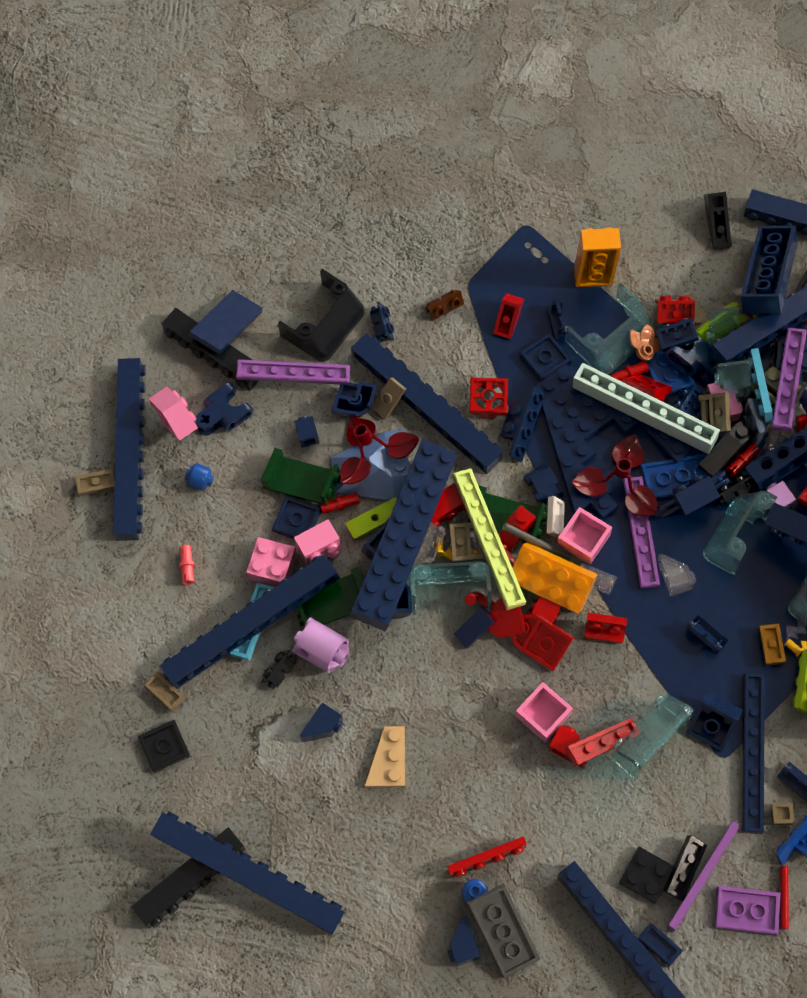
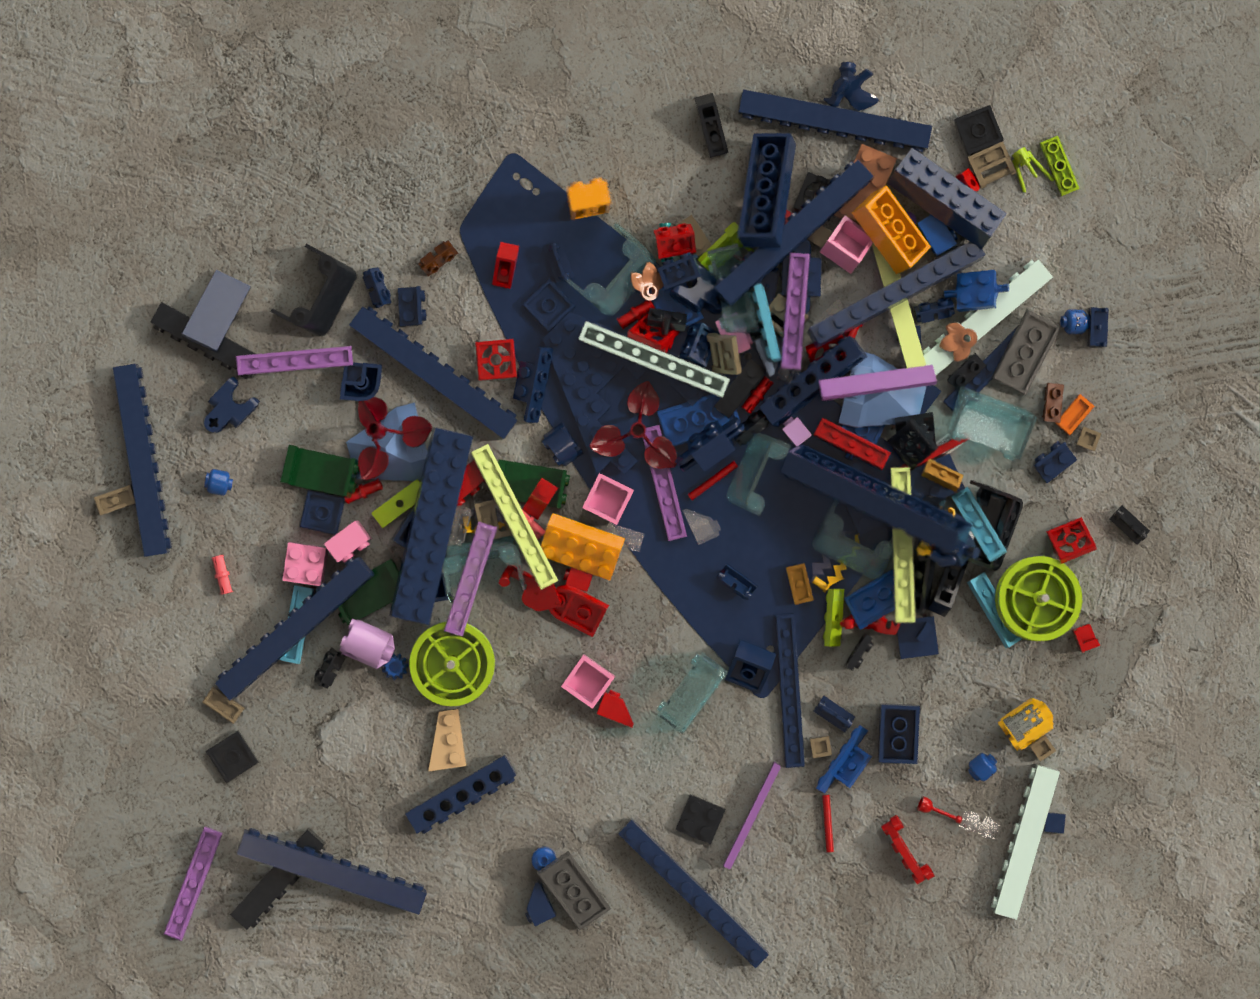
camera: 15 degrees left, 20 degrees up
(98, 873) = (193, 883): none -> medium lavender tile
(173, 412) = (181, 422): bright pink piece -> none
(306, 431) = (317, 418): dark blue brick -> none
(322, 724) = (380, 717): dark blue slope -> none
(346, 677) = (395, 667): none -> blue piece
(388, 398) = (395, 374): dark tan plate -> none
(405, 677) = (451, 666): none -> lime wheel
(412, 343) = (410, 306): none -> dark blue bracket
(436, 589) = (470, 579): none -> medium lavender tile
(440, 788) = (416, 815): none -> dark blue brick
(474, 627) = (511, 604): dark blue tile -> none
(479, 861) = (558, 820): red plate -> none
(535, 541) = (562, 512): dark grey bar -> none
(555, 516) = (577, 480): white tile -> none
(599, 742) = (645, 704): plate -> none
(605, 628) = (638, 589): red bracket -> none
(659, 376) = (666, 320): none -> black plate
(659, 944) = (718, 880): dark blue tile -> none
(685, 868) = (734, 809): black plate -> none
(691, 535) = (711, 481): none -> red bar
(747, 910) = (795, 839): medium lavender tile -> none

